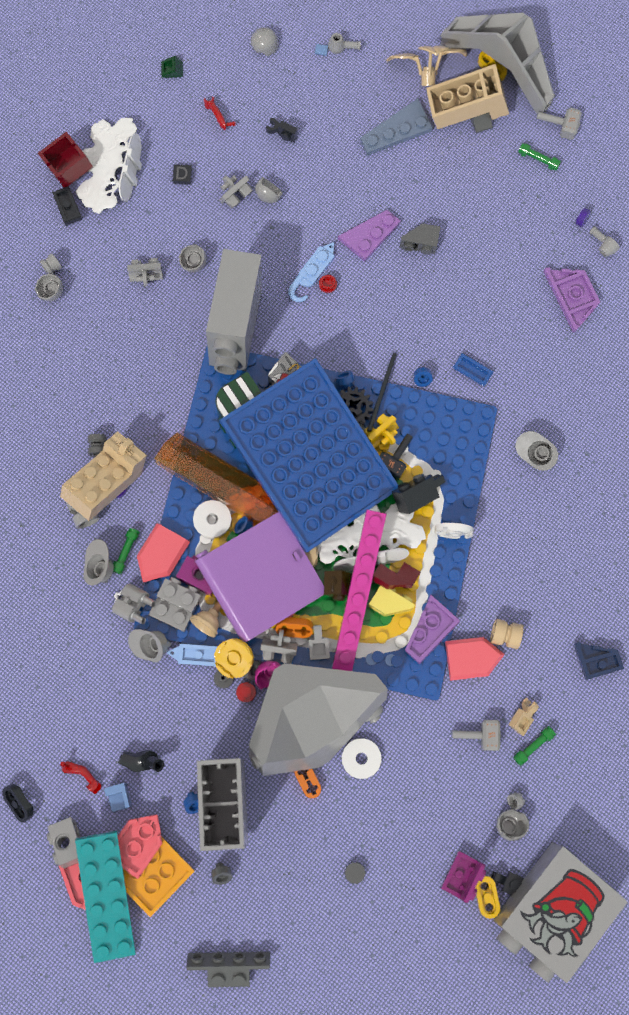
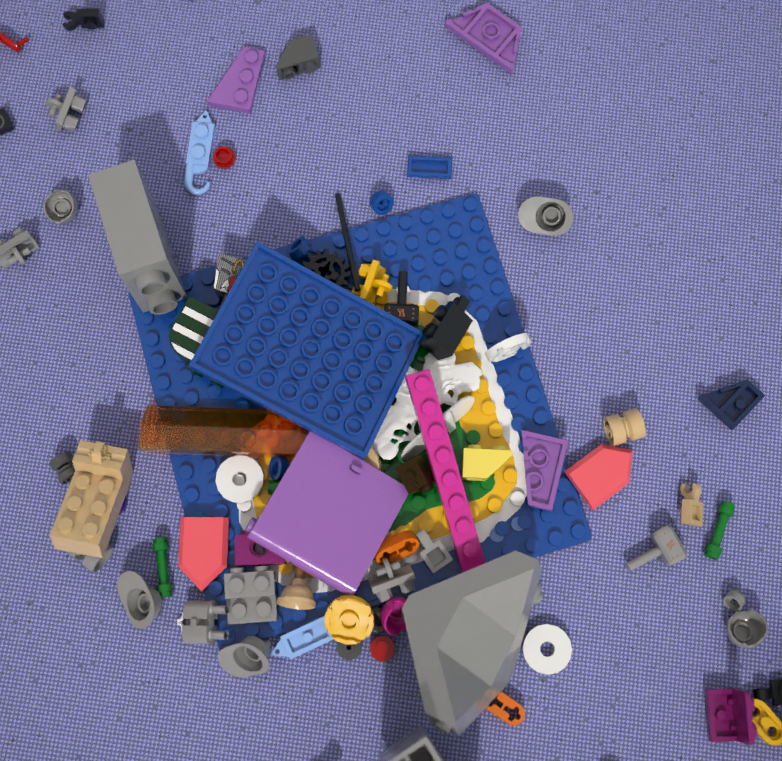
camera: 25 degrees left, 0 degrees up
(267, 191) = (103, 93): light grey hair -> none
(389, 579) = (470, 438): dark red tile -> none

